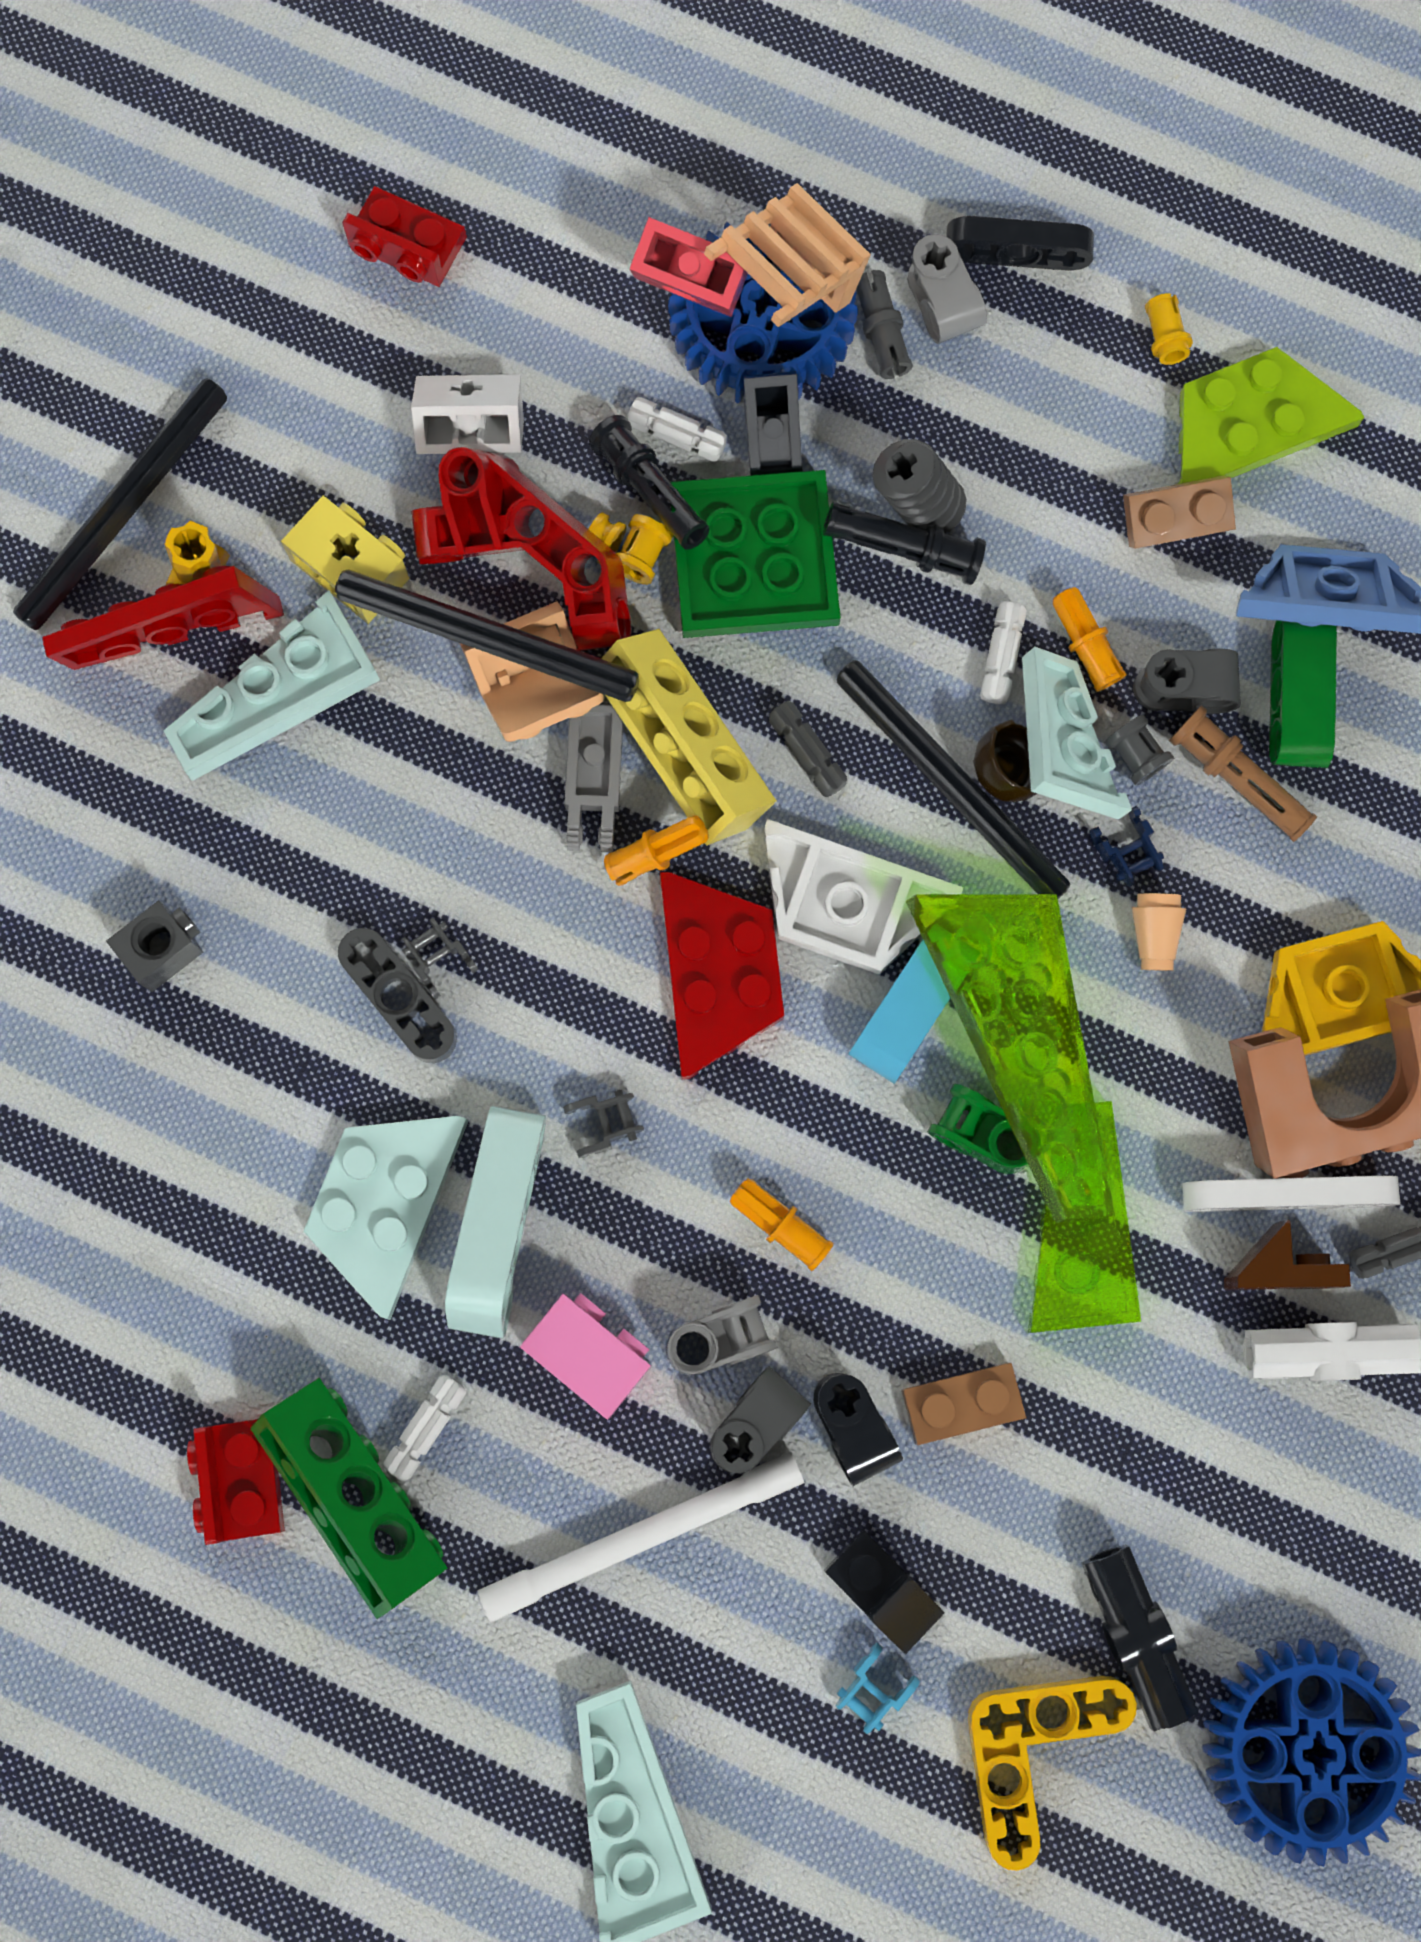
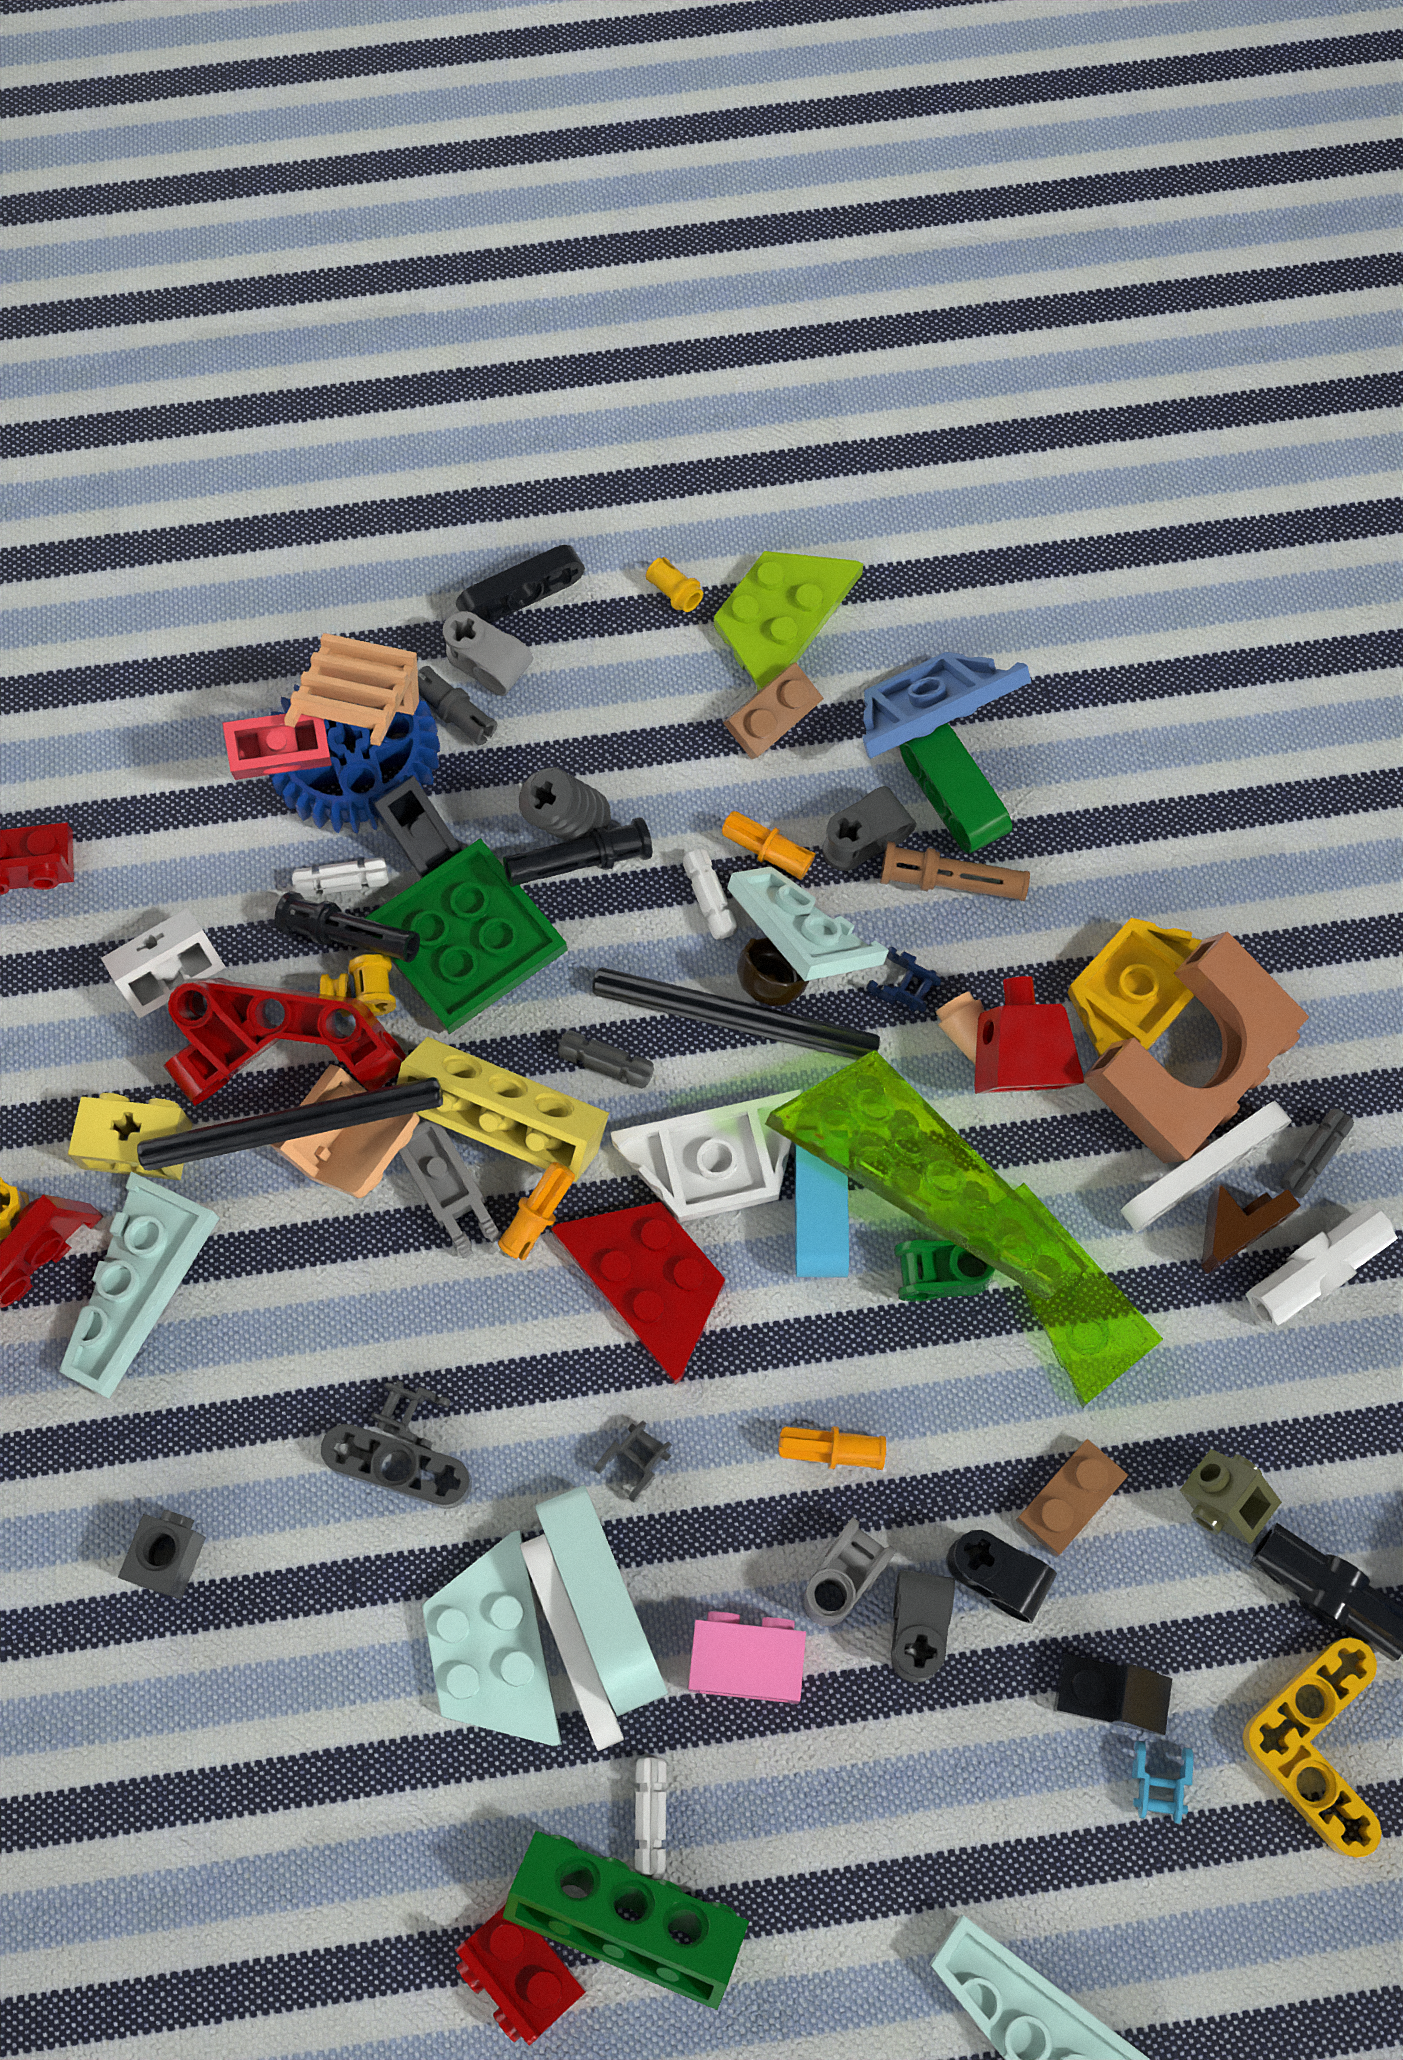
camera: 30 degrees left, 10 degrees down
(431, 1322) = (571, 1643): none -> white beam
(530, 1585) = (826, 1889): white piece -> none
(1102, 1496) = (1230, 1496): none -> olive brick
(1139, 750) = (863, 903): dark grey bush -> none
(1197, 977) = (1025, 1044): none -> red torso

